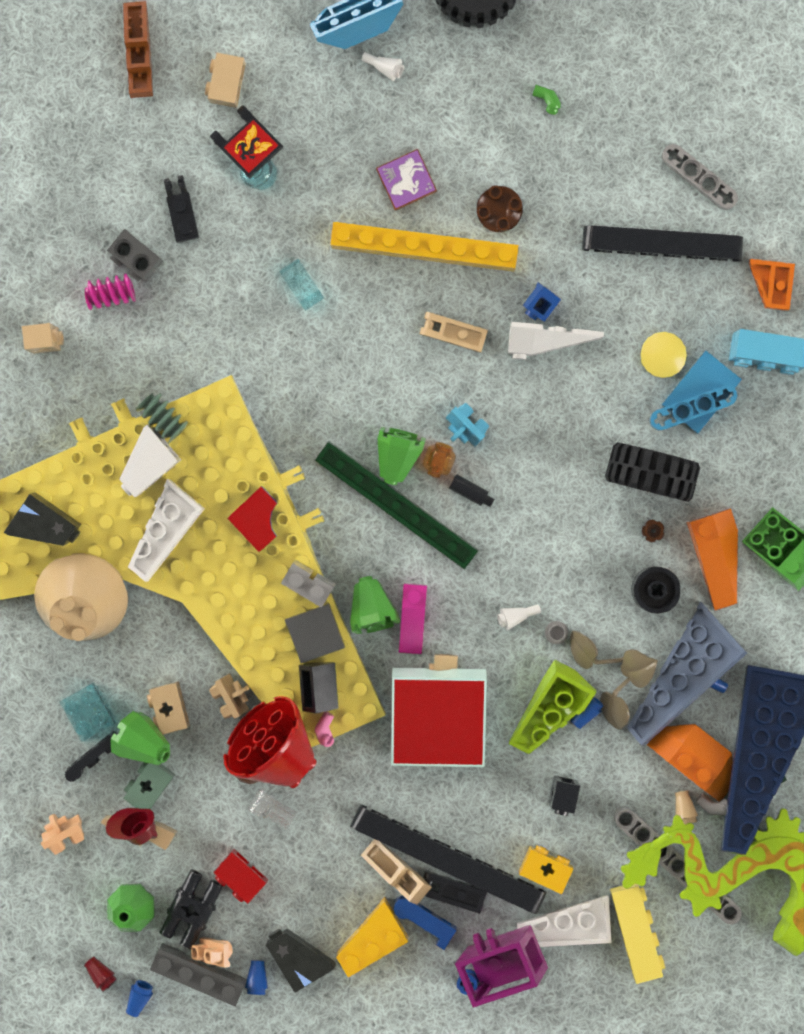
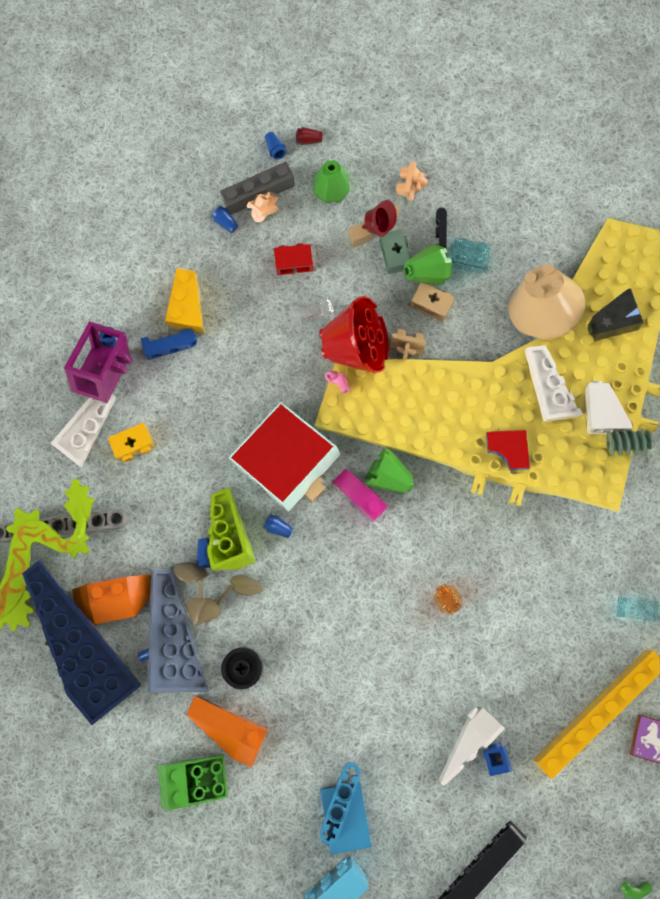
camera: 130 degrees right, 10 degrees down
(179, 912) = (306, 211): black pin -> none
(298, 959) = (214, 251): pearl dark grey slope -> none
(313, 590) = (433, 445): light grey piece -> none
(315, 633) = (404, 424): dark grey tile -> none
(318, 687) = (368, 398): black brick -> none
(396, 505) = (441, 546): dark green plate -> none
(396, 871) = (212, 351): tan slope -> none
(397, 453) = (475, 575): bright green cone -> none
(448, 860) = (191, 388): black beam -> none
(454, 332) = (524, 683): tan plate -> none
(455, 892) = (169, 375): black plate -> none
(464, 428) = (455, 633): medium azure hips -> none
(471, 491) = (410, 602): black cylinder -> none
(499, 209) = (584, 787): reddish brown dish -> none
(505, 667) = (277, 526): none -> blue cone
(513, 616) = (306, 558): white cone -> none
(556, 632) = (271, 578): light grey plate -> none
(564, 795) = (165, 492): black brick -> none
(637, 934) = (41, 463): light yellow brick -> none
(652, 471) = (322, 736): black tyre -> none
(659, 530) = (281, 695): reddish brown plate -> none
(663, 354) = (392, 813): light yellow dish -> none
(684, 807) = (88, 563): tan cone -> none
(711, 807) = (74, 580): light grey arm -> none

